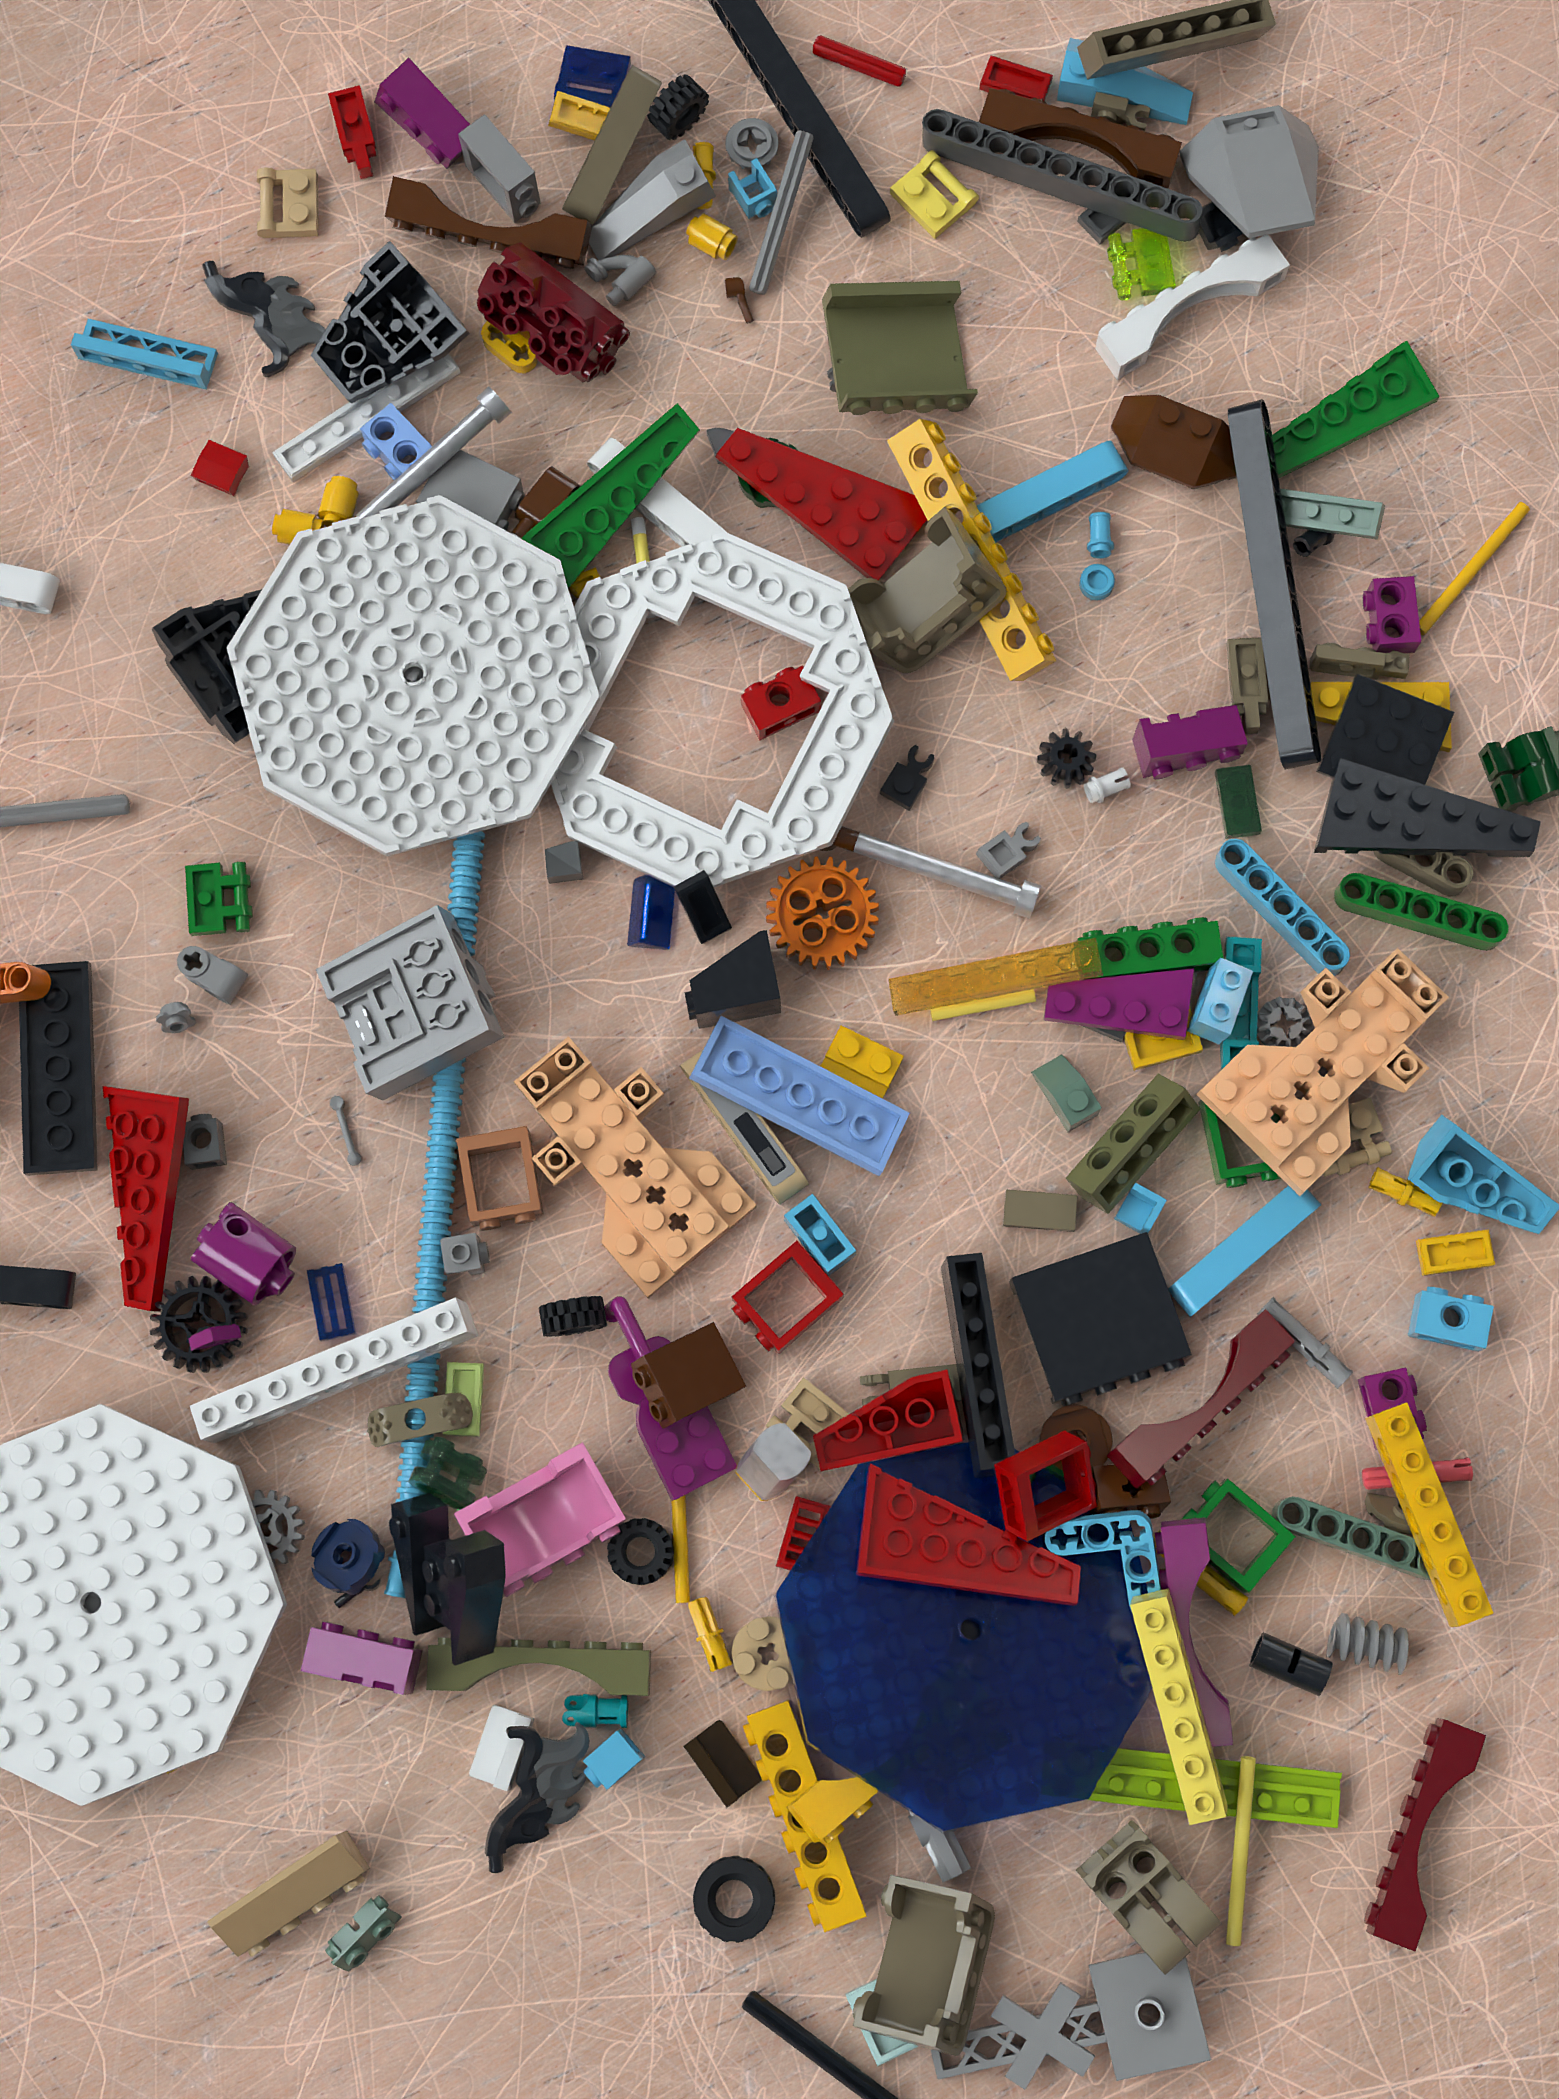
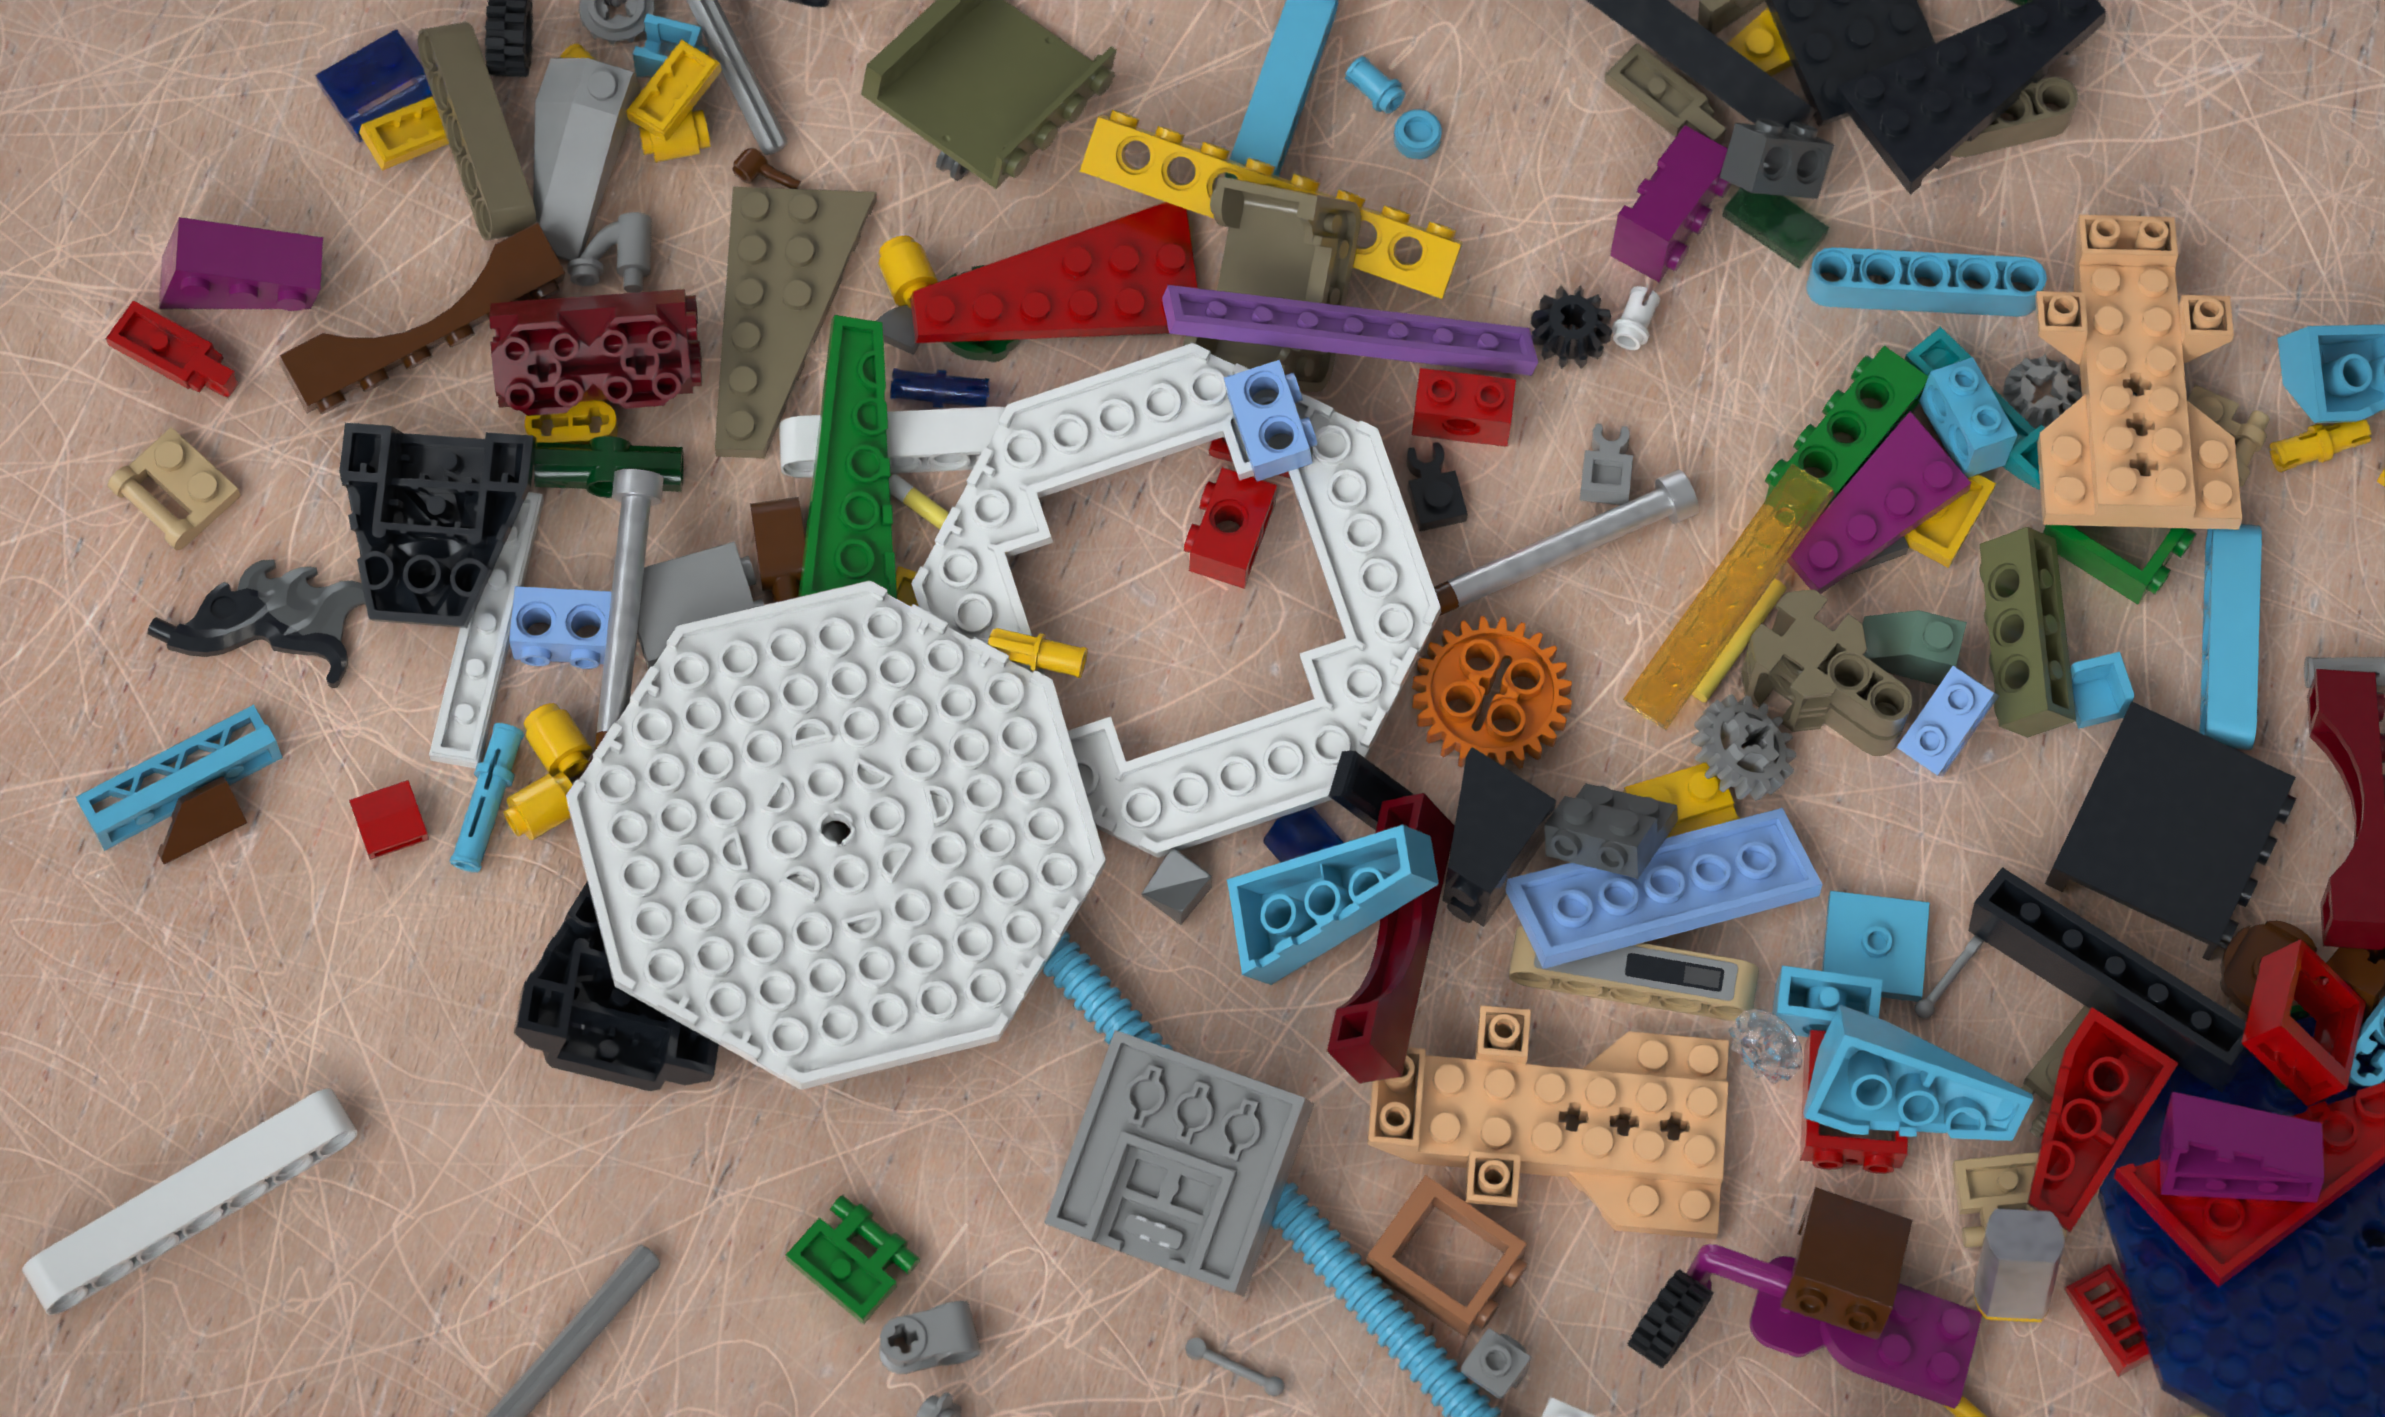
camera: 50 degrees left, 10 degrees down
(134, 384) = (201, 818): none -> reddish brown tile
(275, 501) = (493, 777): none -> medium azure pin
(500, 168) = (385, 252): light grey window -> none
(505, 382) = (594, 464): none -> dark green piece
(571, 1025) = (1376, 1023): none -> dark red arch
(609, 676) = (1040, 652): none -> yellow axle
(613, 936) = (1323, 898): none -> medium azure wedge
(684, 367) = (779, 287): none -> dark tan wing
(710, 493) = (939, 388): none -> clear blue pin
(726, 211) = (673, 90): none -> yellow plate
(754, 413) = (905, 268): none -> yellow brick
(768, 1226) = (1779, 1040): none -> clear gear
(801, 1039) = (1609, 830): none -> dark grey plate
(805, 1305) = (1894, 1081): none -> medium azure wedge
(829, 659) = (1261, 422): none -> light blue brick
(876, 1285) = (1925, 1007): none -> light grey hinge
(884, 1229) = (1878, 941): none -> medium azure plate
(918, 1079) = (1752, 770): none -> light grey gear
(933, 1519) = (2238, 1152): none -> magenta wedge
(936, 652) = (1349, 330): none -> medium lavender plate
(964, 749) = (1463, 407): none -> red brick
(998, 1057) = (1825, 676): none -> dark tan connector
(1038, 1150) = (1947, 721): none -> light blue brick
(1040, 1210) = (2003, 785): dark tan tile -> none
(1263, 768) = (1777, 159): none -> dark grey brick
(1436, 906) = (2068, 149): green beam -> none

